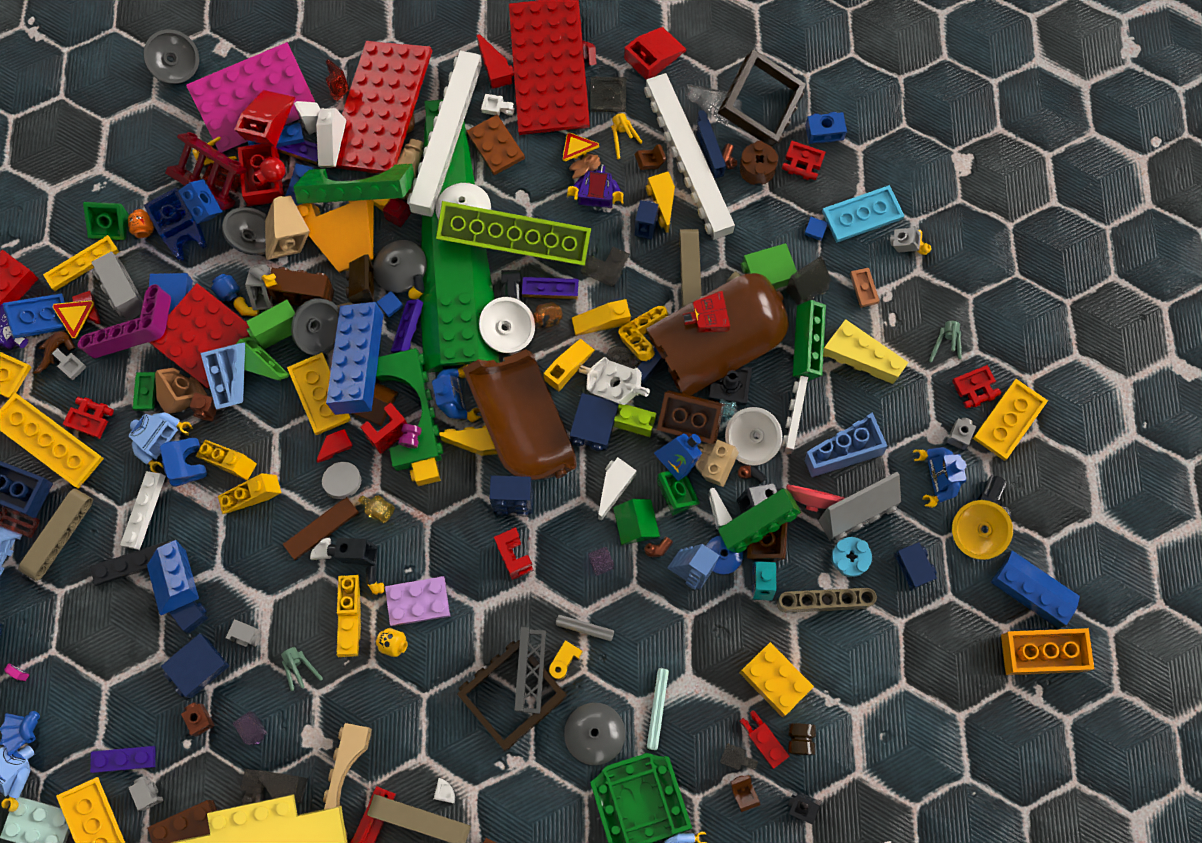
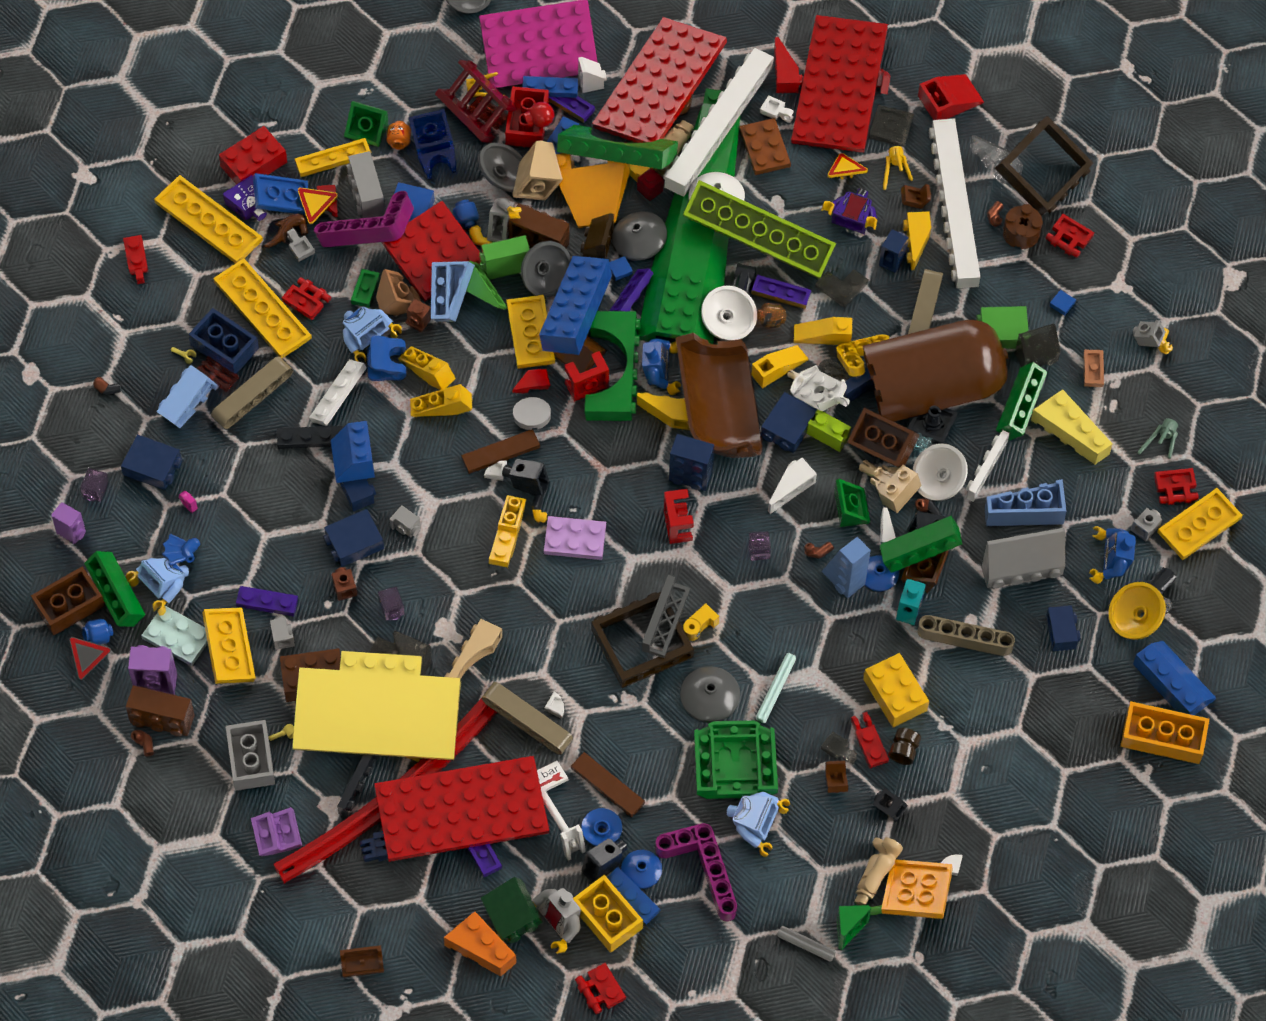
camera: 15 degrees right, 10 degrees down
(200, 201) = (463, 127): blue brick -> none
(265, 118) = (547, 65): red slope -> none
(291, 660) = (445, 556): sand green plant -> none
(330, 132) = (603, 98): white slope -> none
(336, 81) = (624, 47): clear red panel -> none
(377, 508) = (559, 446): clear yellow piece -> none
(391, 642) = (541, 565): yellow head -> none
(409, 436) = (609, 386): magenta wheel -> none
(418, 288) = (652, 259): arm -> none
(425, 472) = (613, 426): yellow brick -> none
(584, 627) = (727, 601): light grey axle -> none
(587, 163) = (853, 185): nougat plate -> none
(636, 521) = (803, 521): green slope -> none
(680, 455) = (863, 469): blue torso -> none
(709, 314) = (925, 344): red torso -> none
(710, 146) = (978, 199): dark blue hinge -> none
(813, 498) = (975, 535): coral dish -> none
(818, 134) = (1094, 215): blue brick -> none
(842, 563) = (1003, 595): medium azure plate -> none
(863, 213) = (1114, 300): medium azure plate -> none

